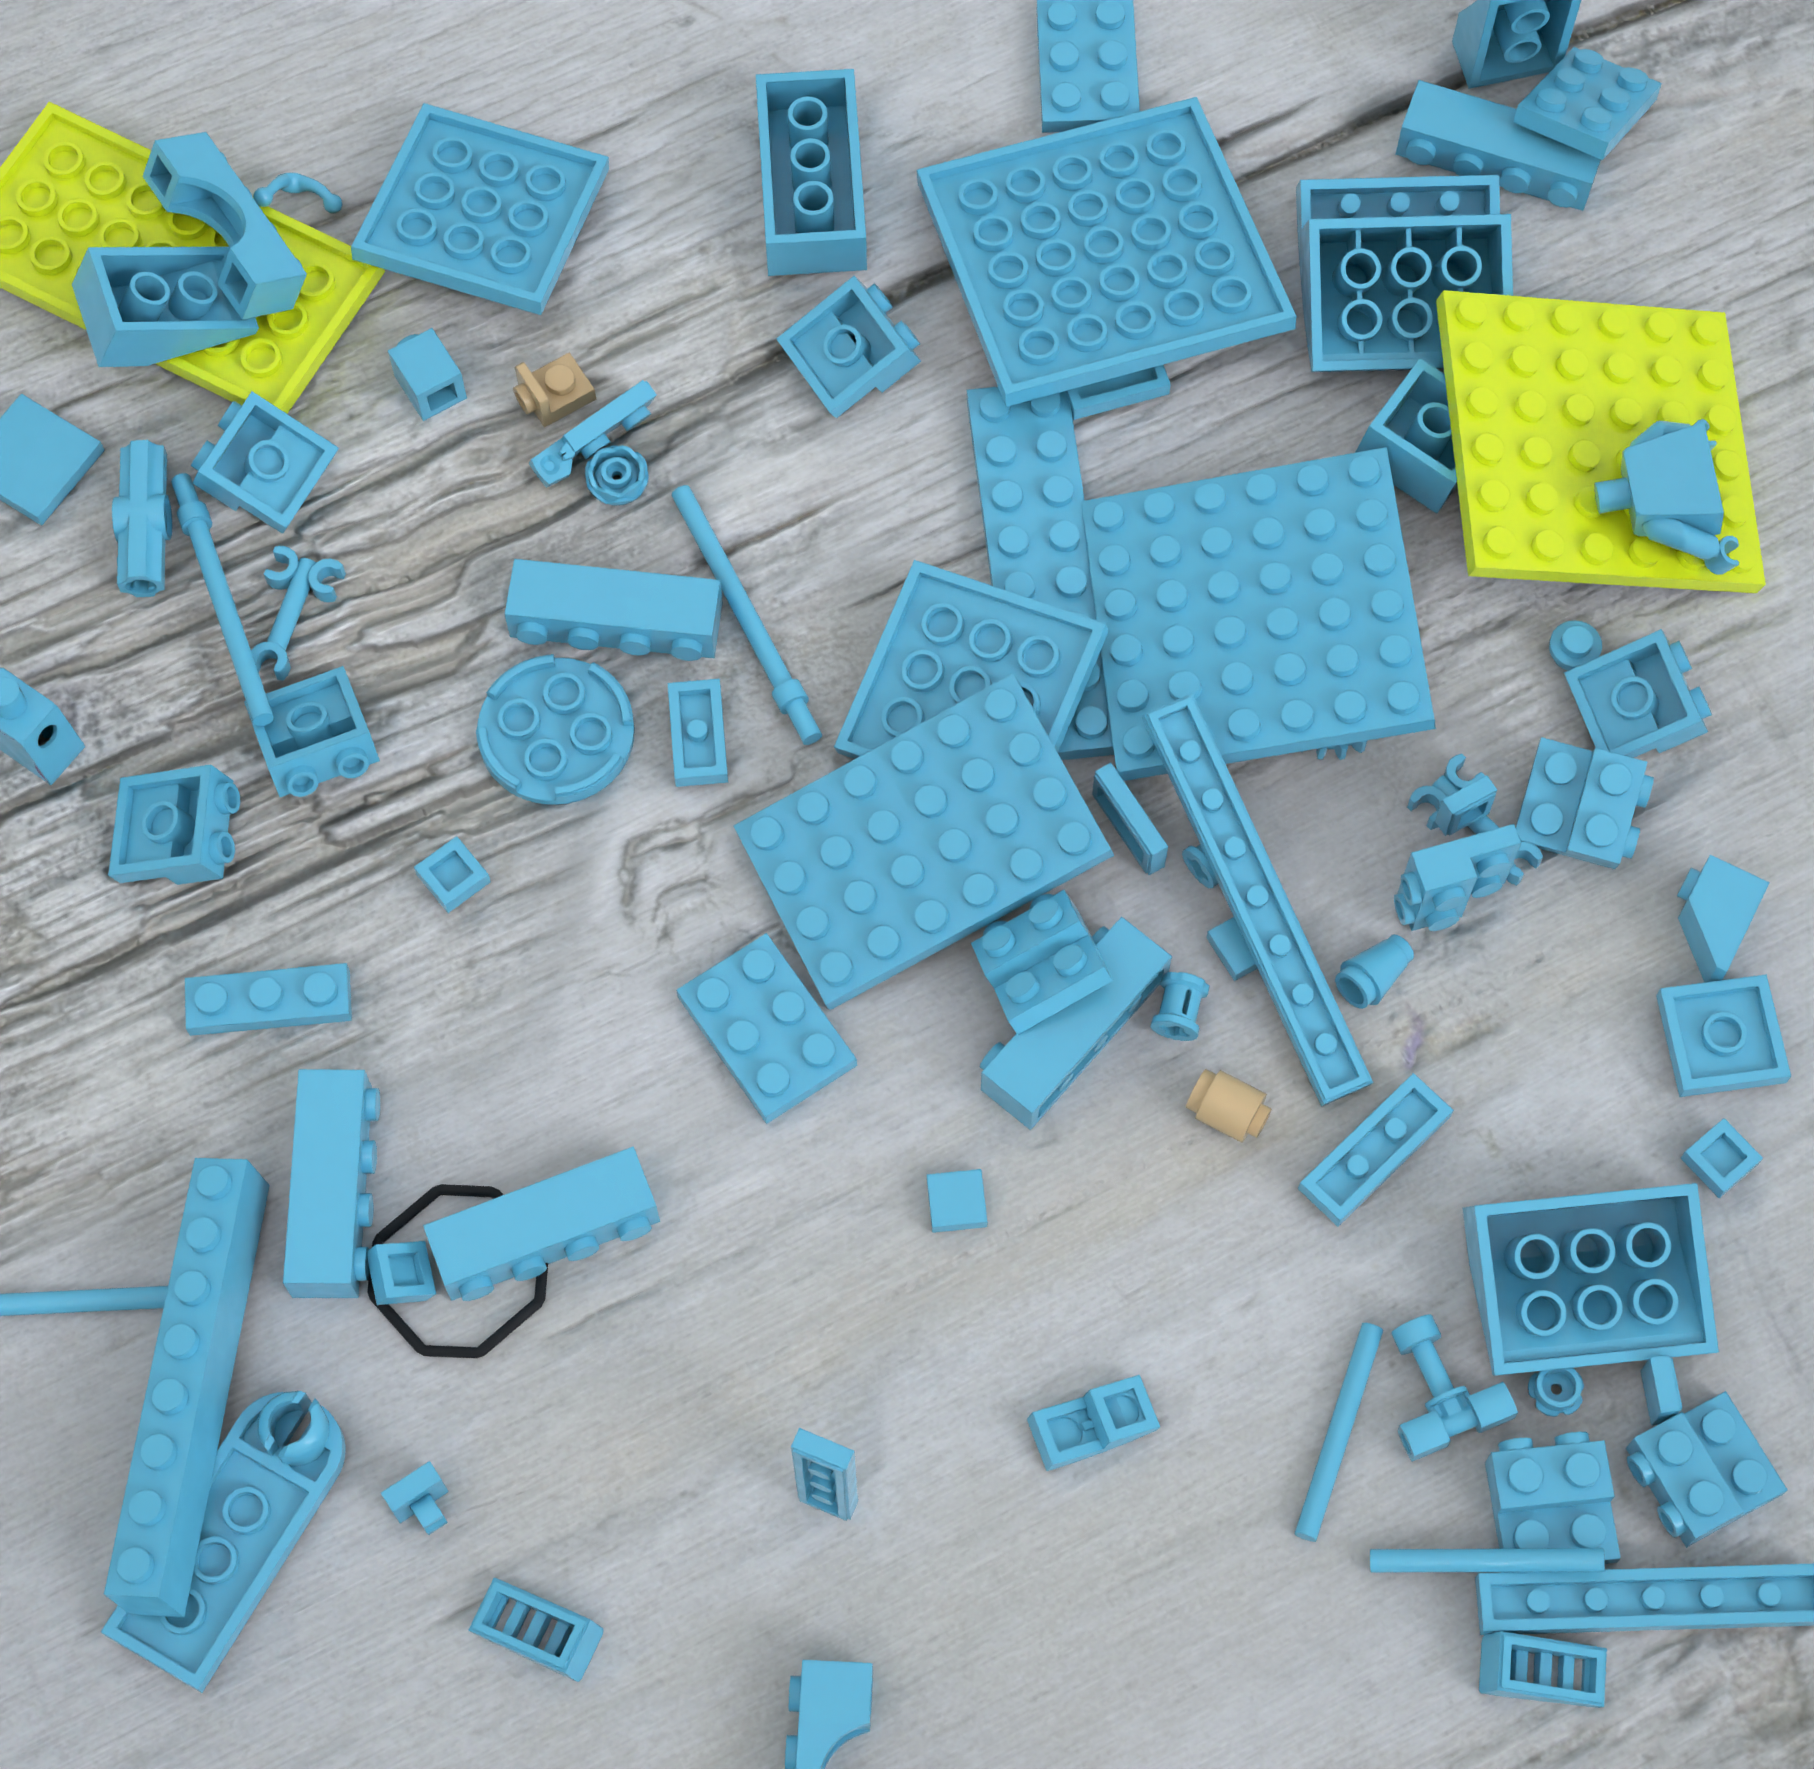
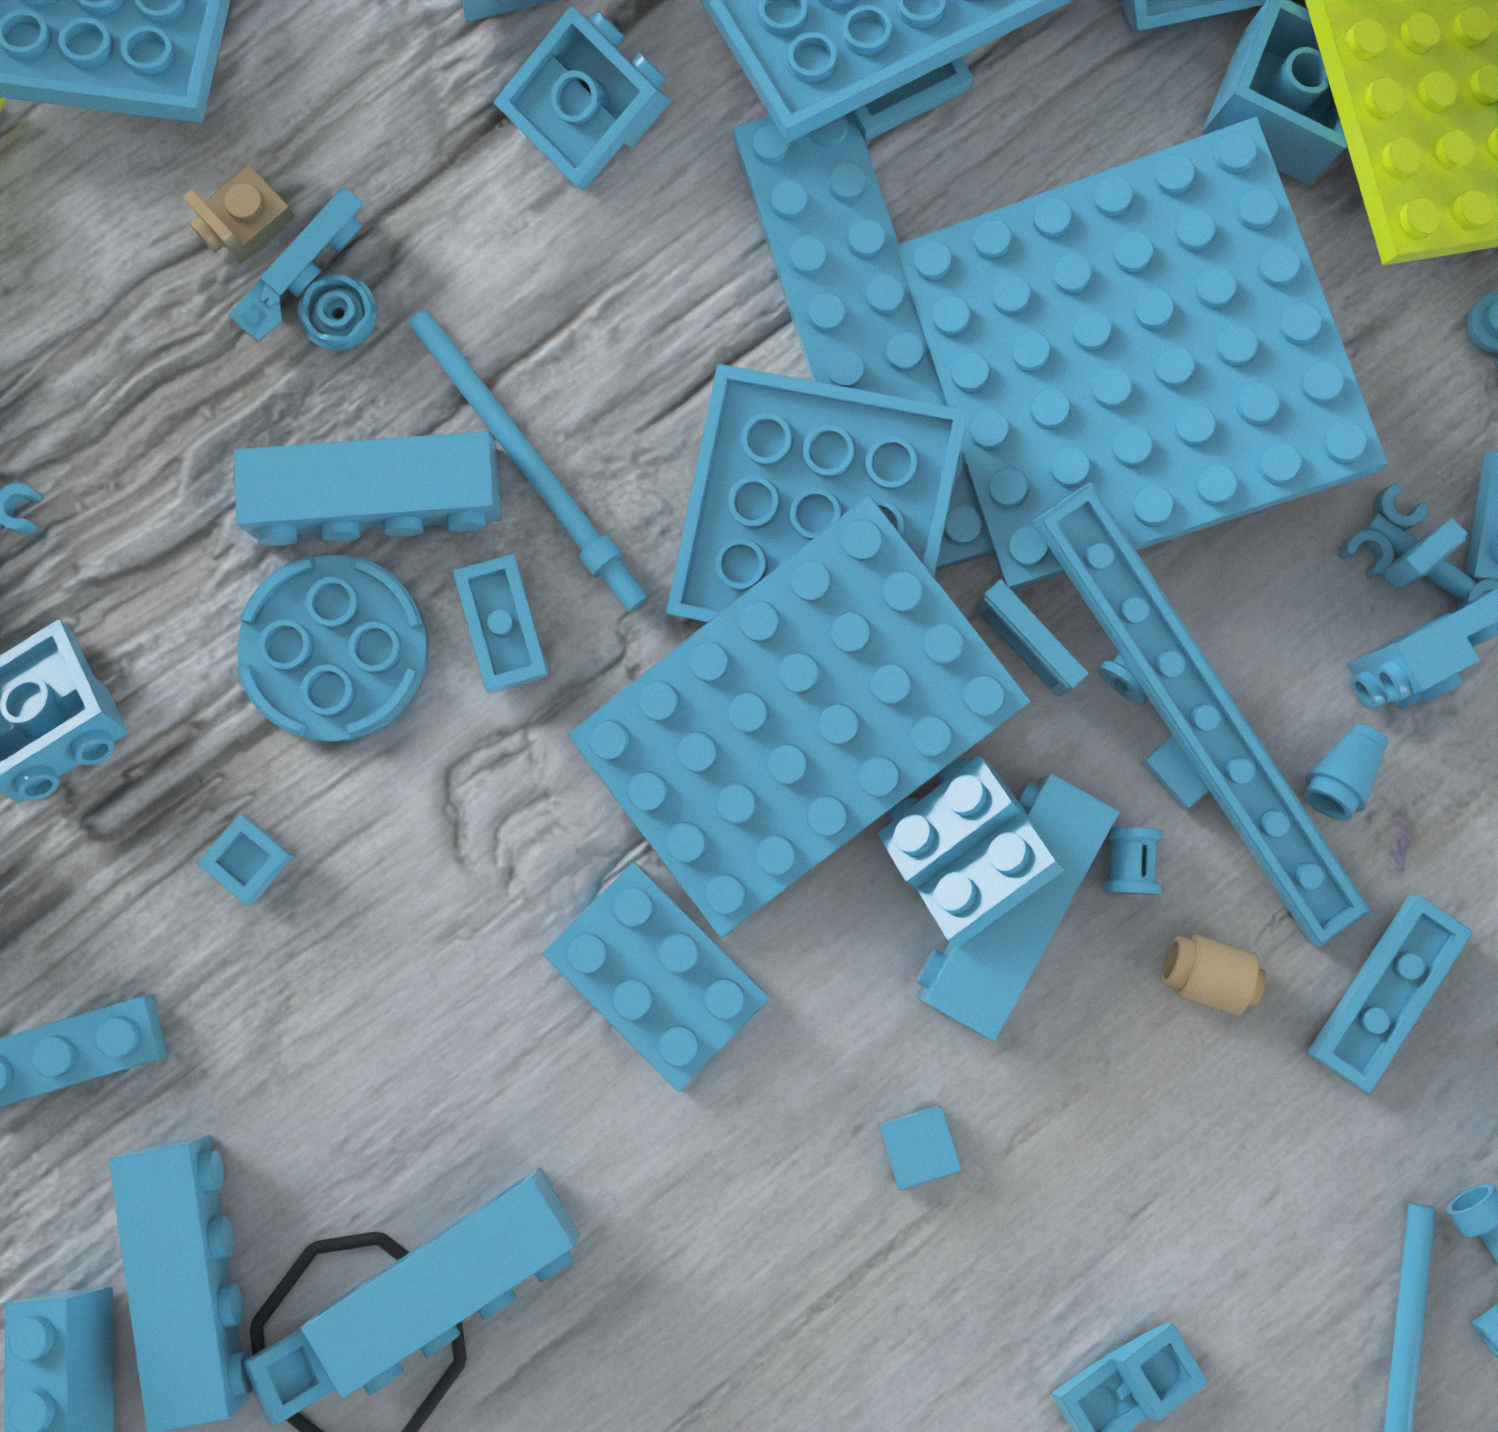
camera: 15 degrees left, 15 degrees up
(427, 373) = (80, 223): medium azure brick -> none

